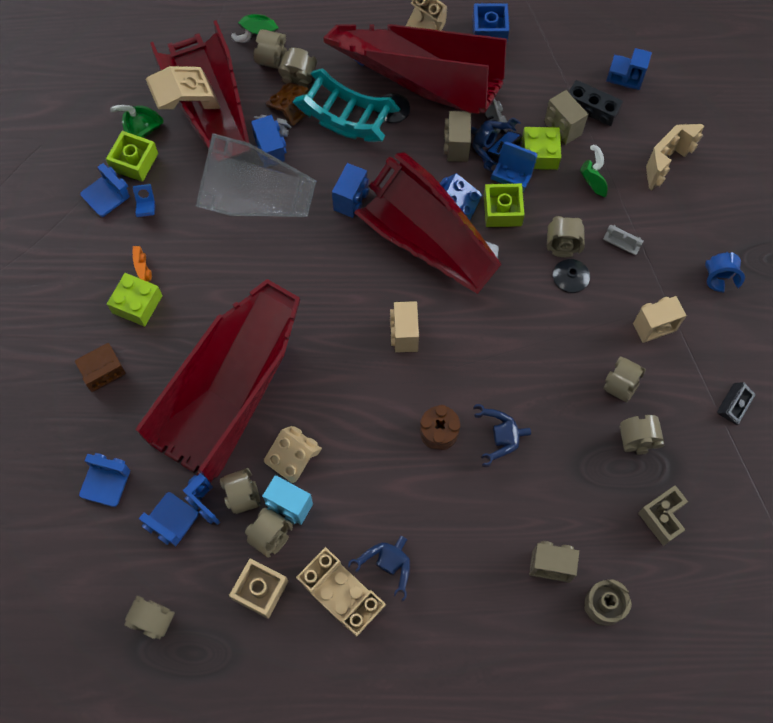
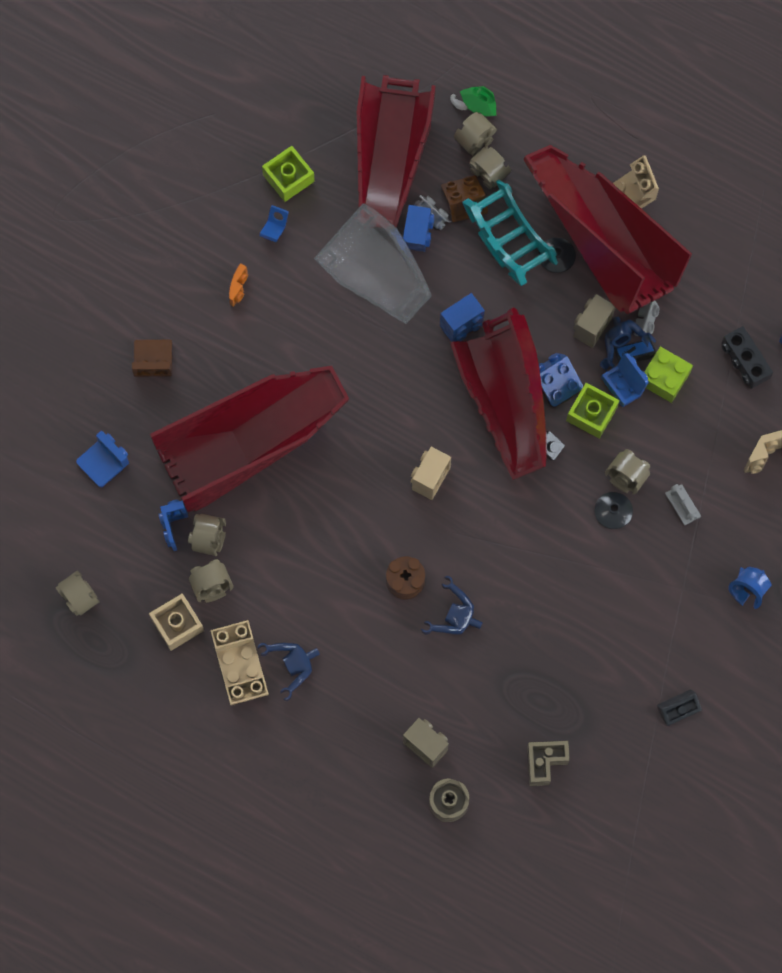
camera: 30 degrees right, 5 degrees up
(105, 192) = (245, 195): blue bracket -> none
(134, 299) = (215, 313): lime brick -> none
(139, 119) = (314, 139): green hat -> none
(170, 519) = (138, 523): blue bracket -> none
(181, 84) = (367, 134): tan slope -> none
(288, 500) = (241, 564): medium azure brick -> none
(291, 453) = (269, 526): tan bracket -> none
(491, 20) = (702, 221): blue brick -> none
(567, 114) = (706, 358): dark tan brick -> none
(591, 173) = (694, 428): green hat -> none
(624, 379) = (590, 629): dark tan brick -> none
(641, 434) = (572, 683): dark tan brick -> none
(659, 318) = (658, 594): tan brick -> none

